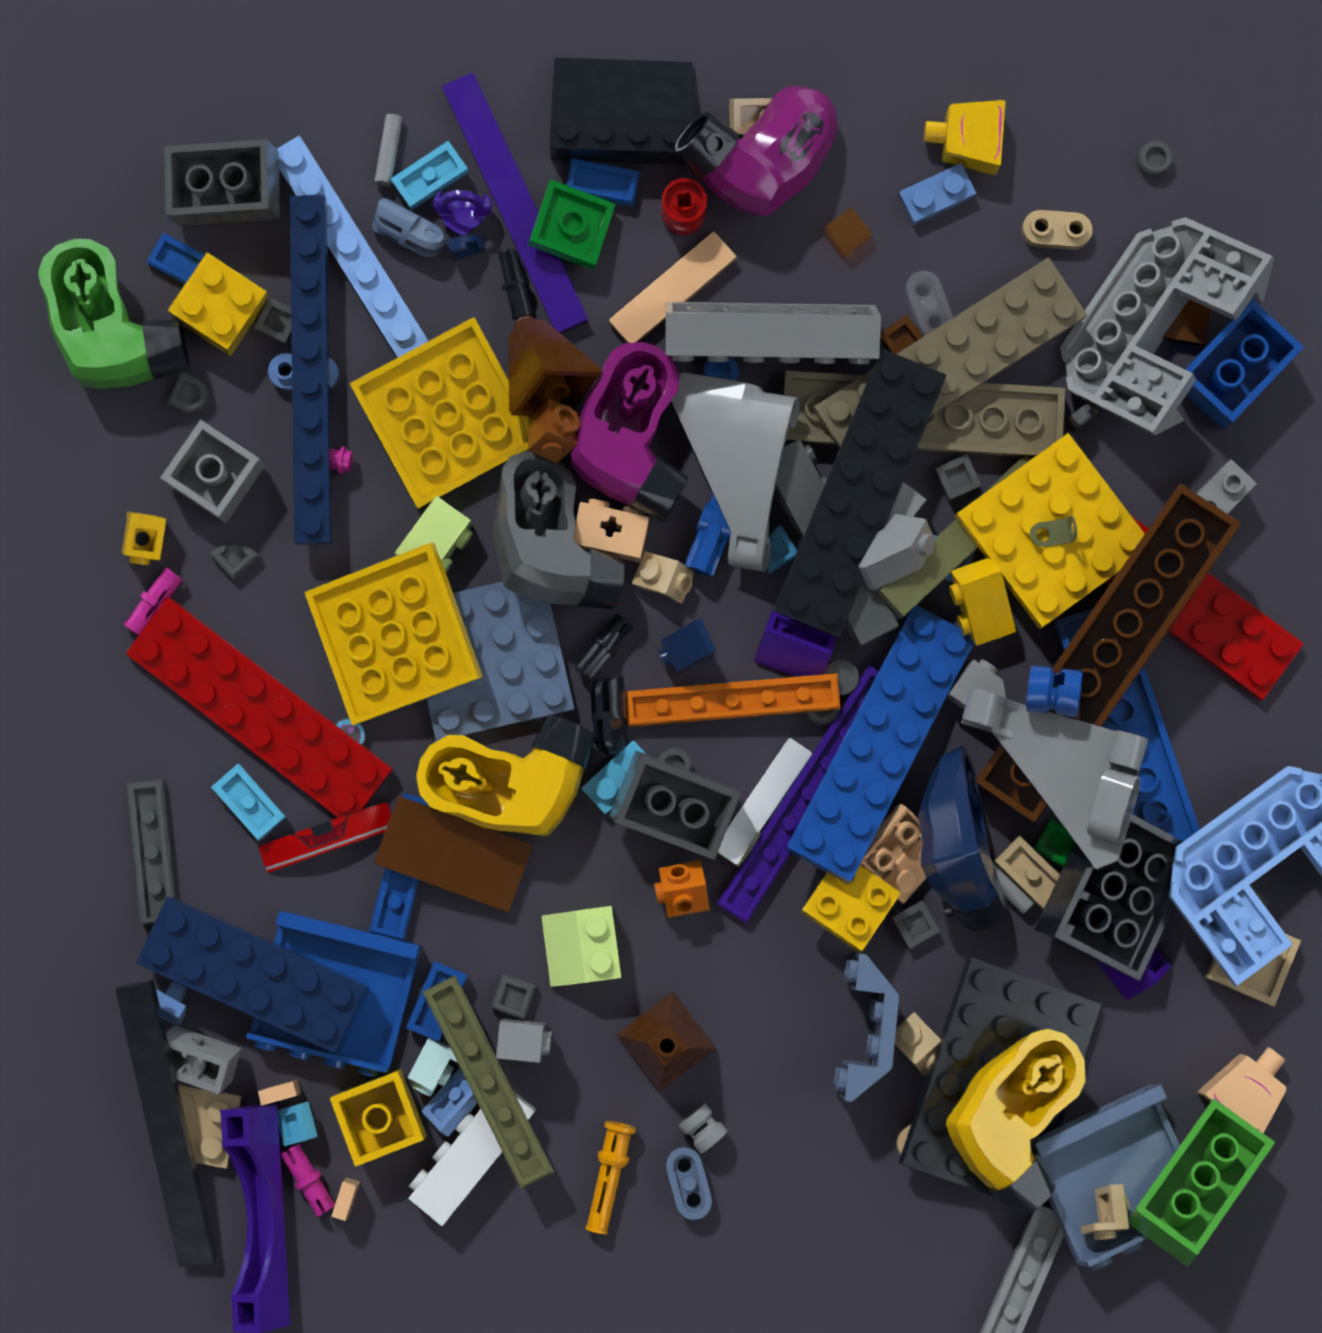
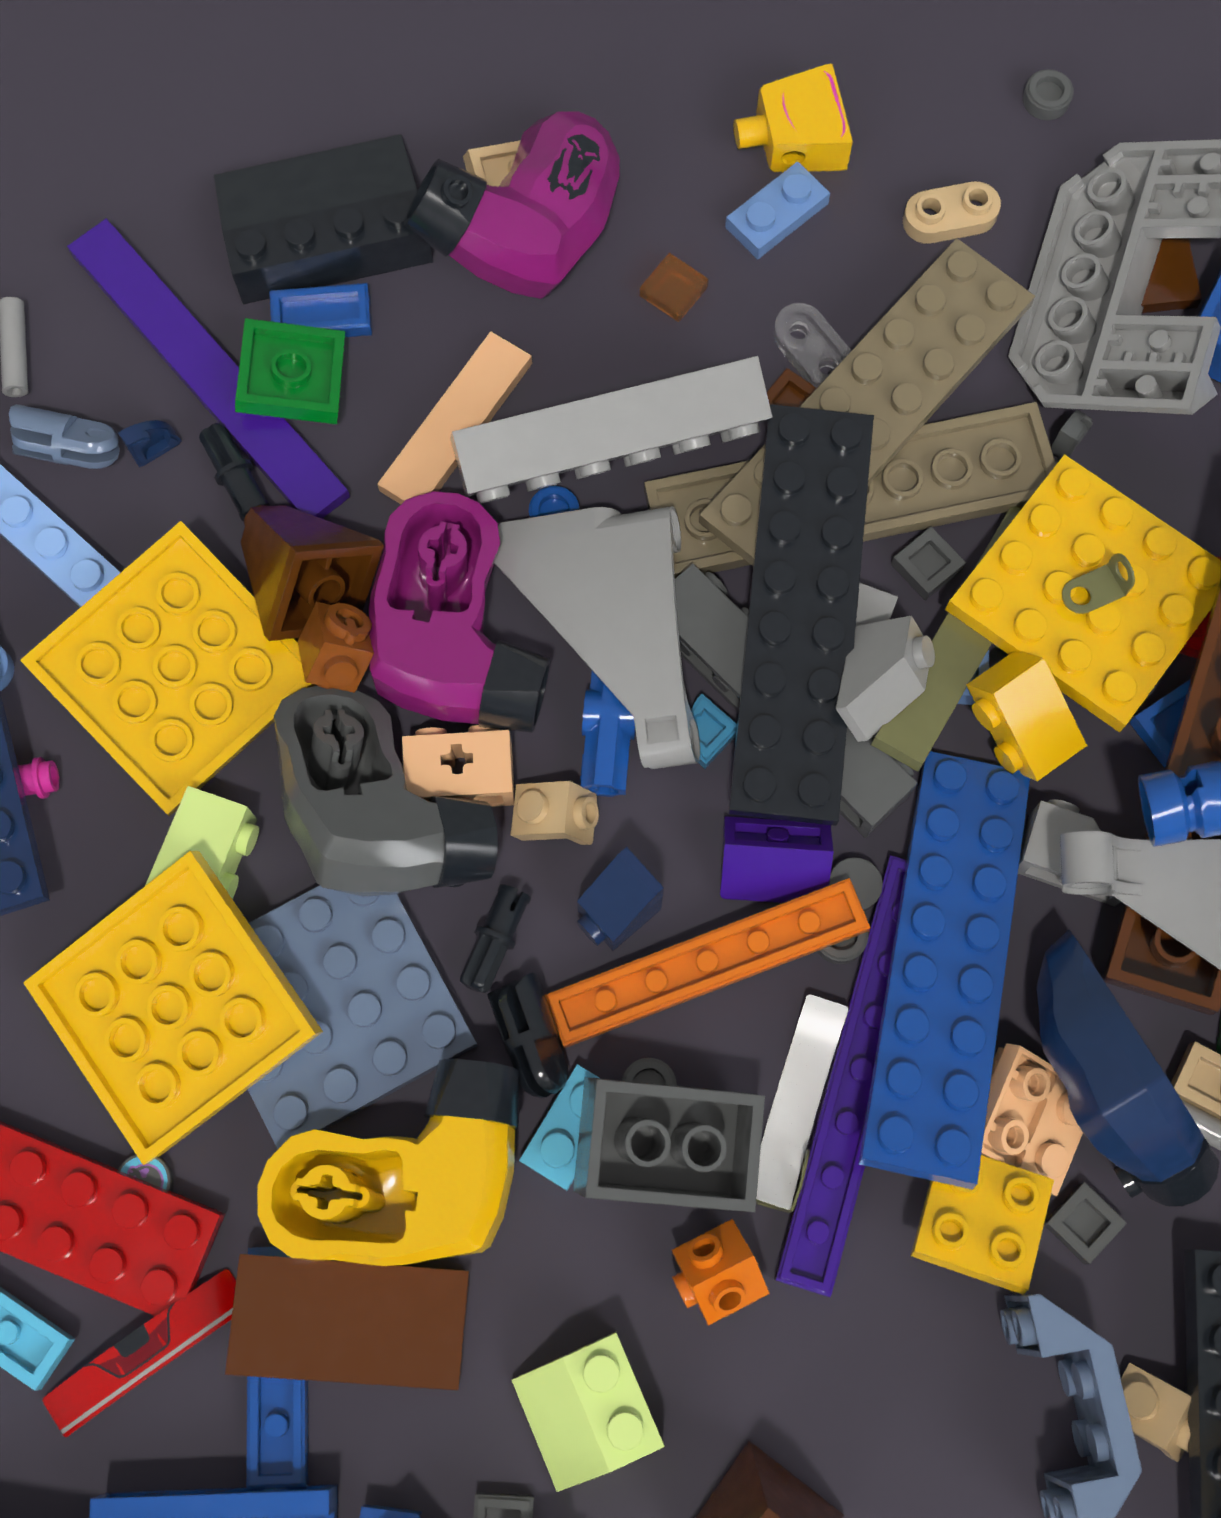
camera: 10 degrees left, 10 degrees down
(429, 175) = (77, 362): medium azure plate -> none
(462, 215) = (132, 403): dark purple piece -> none
(684, 206) = (440, 307): red wheel -> none

